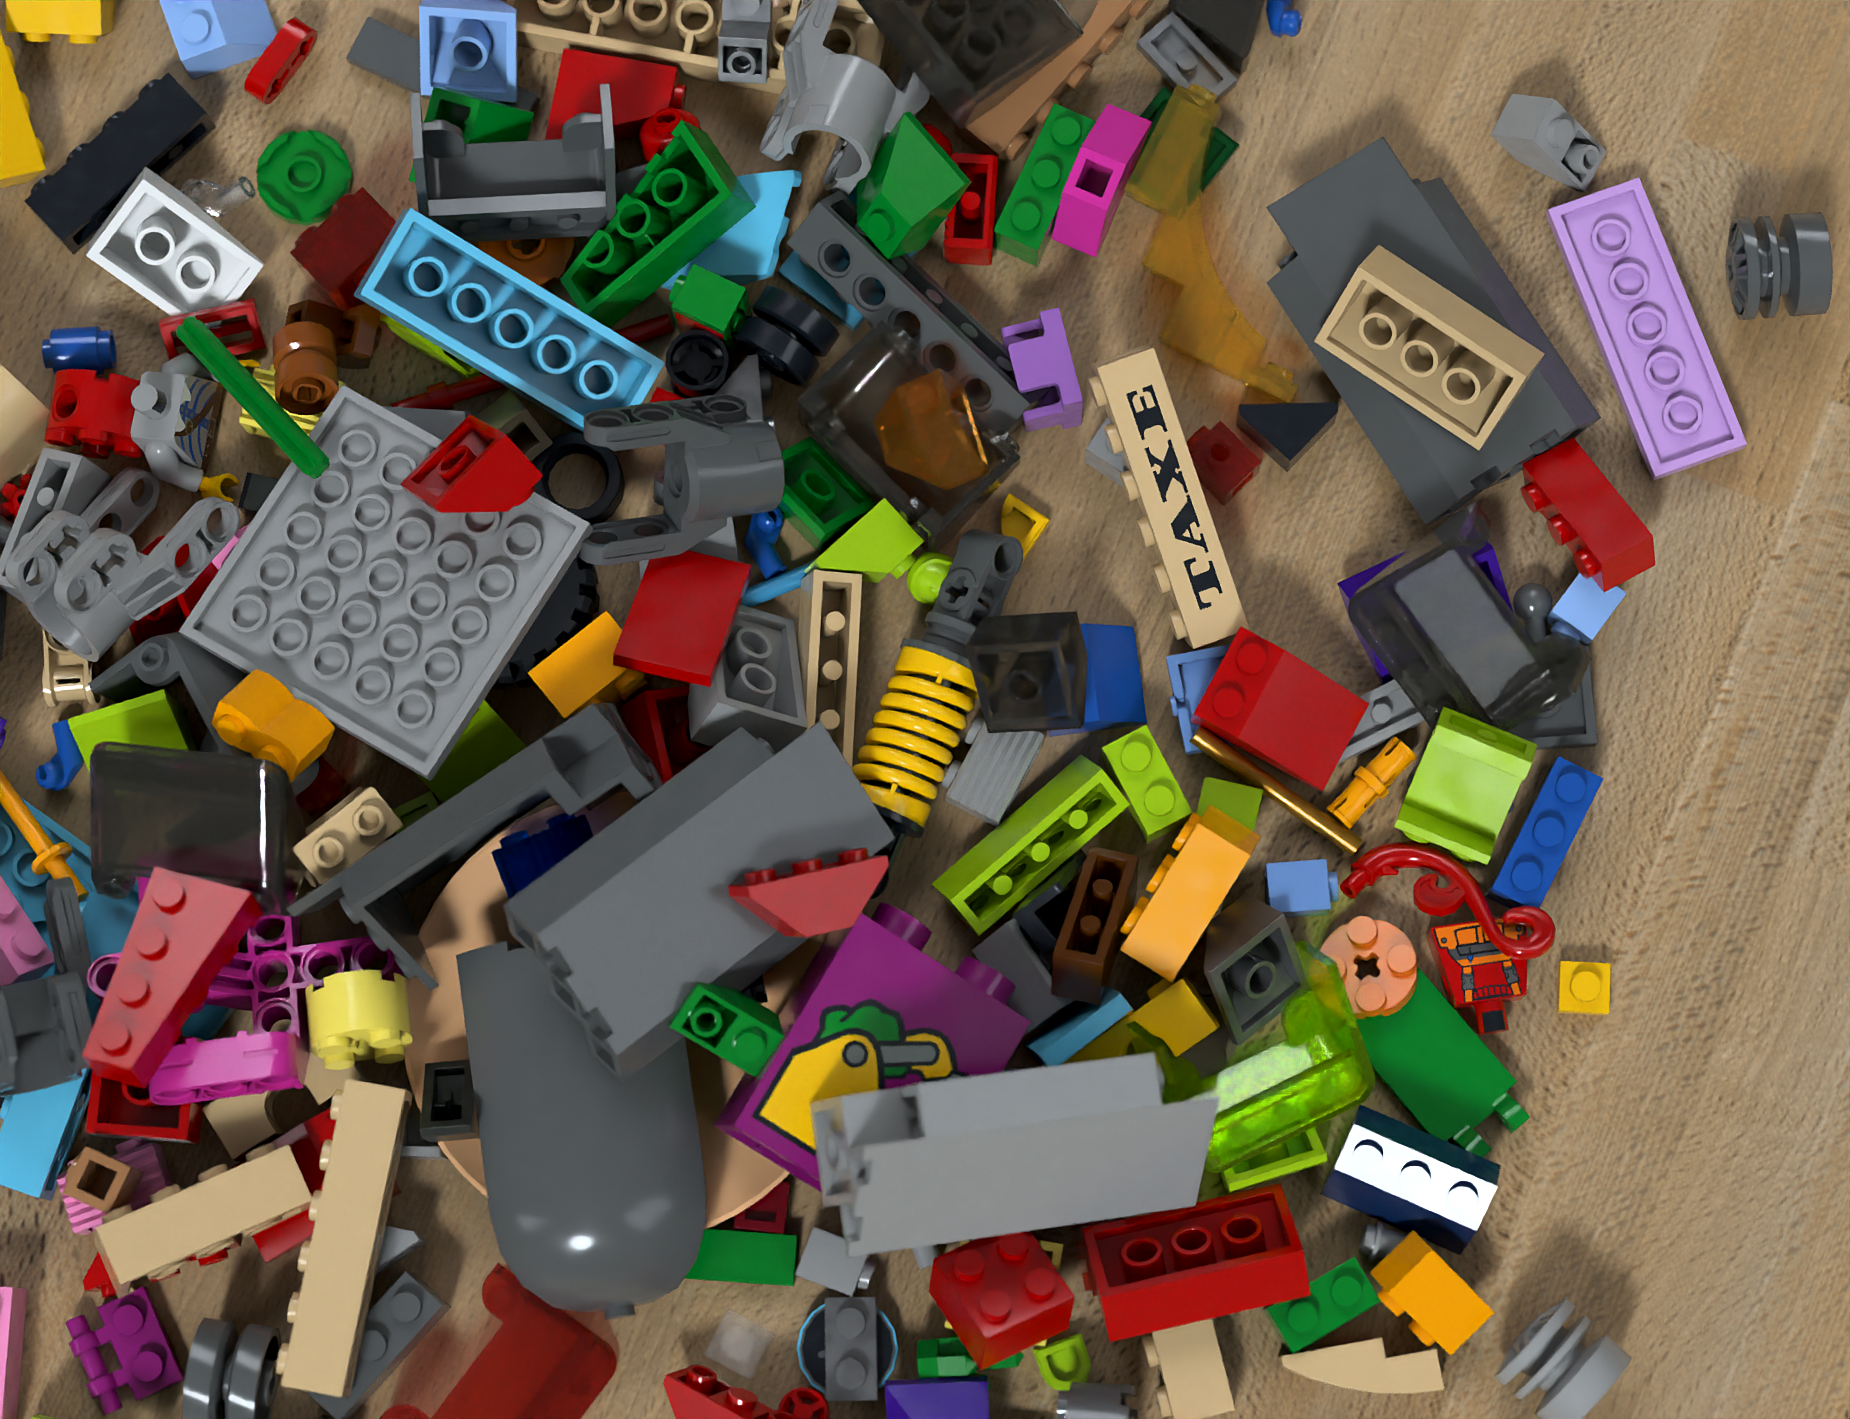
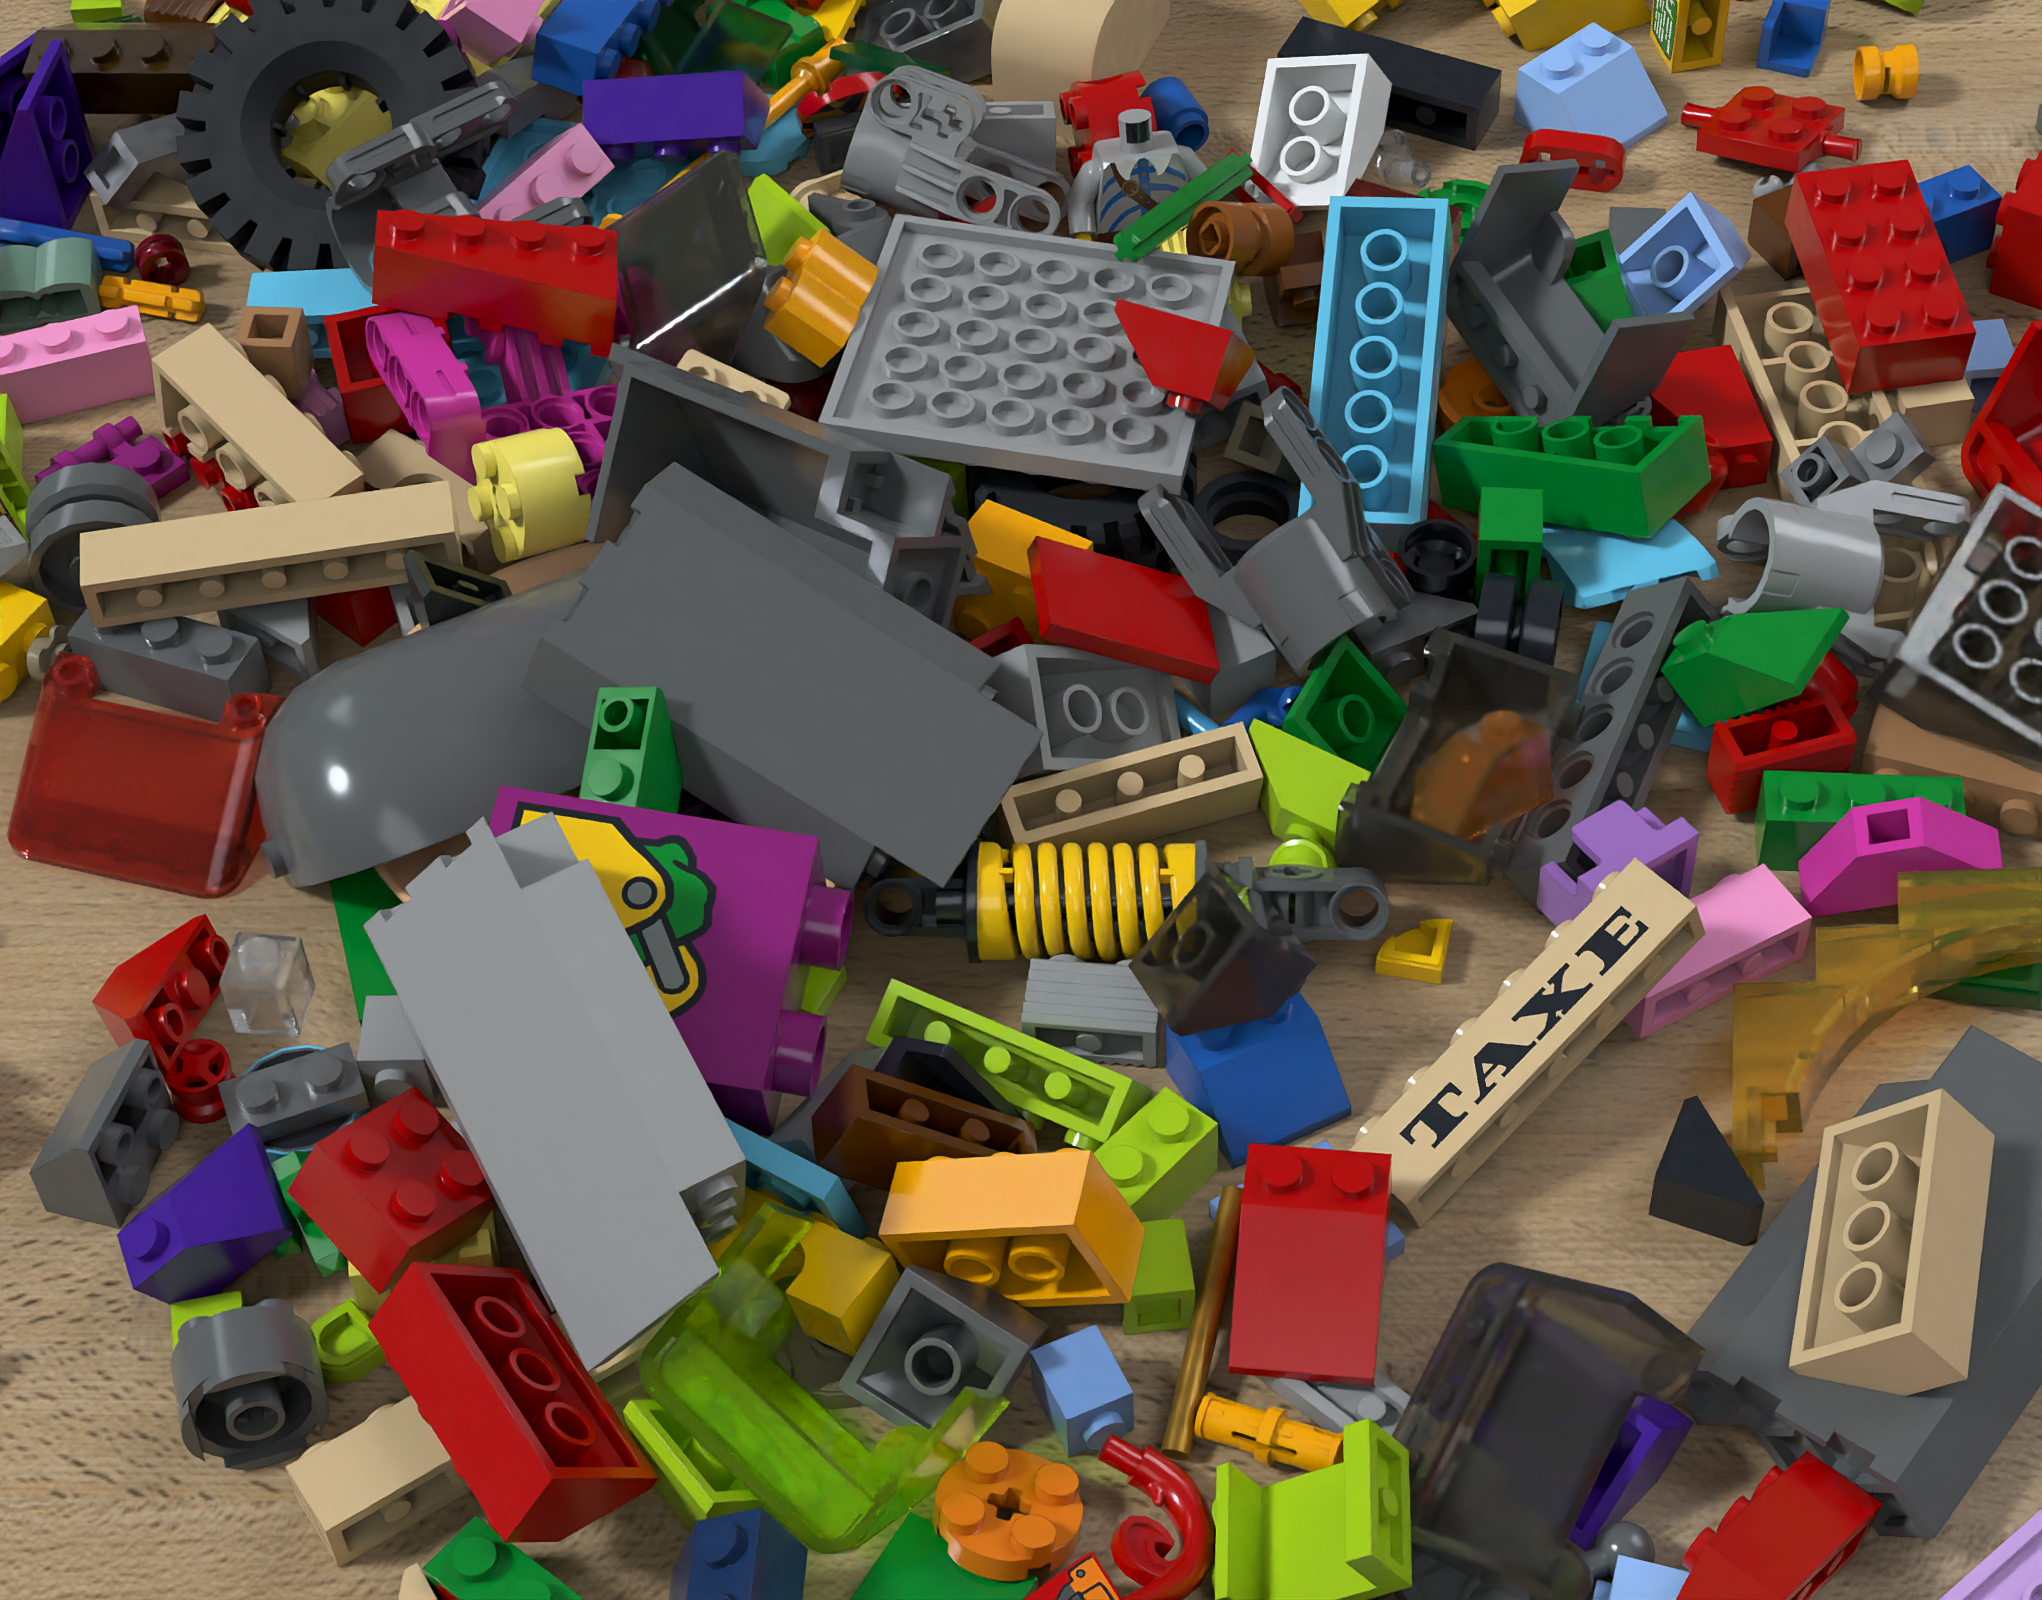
camera: 65 degrees right, 30 degrees down
(813, 895) = (822, 786): red slope -> none
(1102, 320) = (1750, 934): none -> bright pink brick
(1222, 461) = (1614, 1120): clear red brick -> none

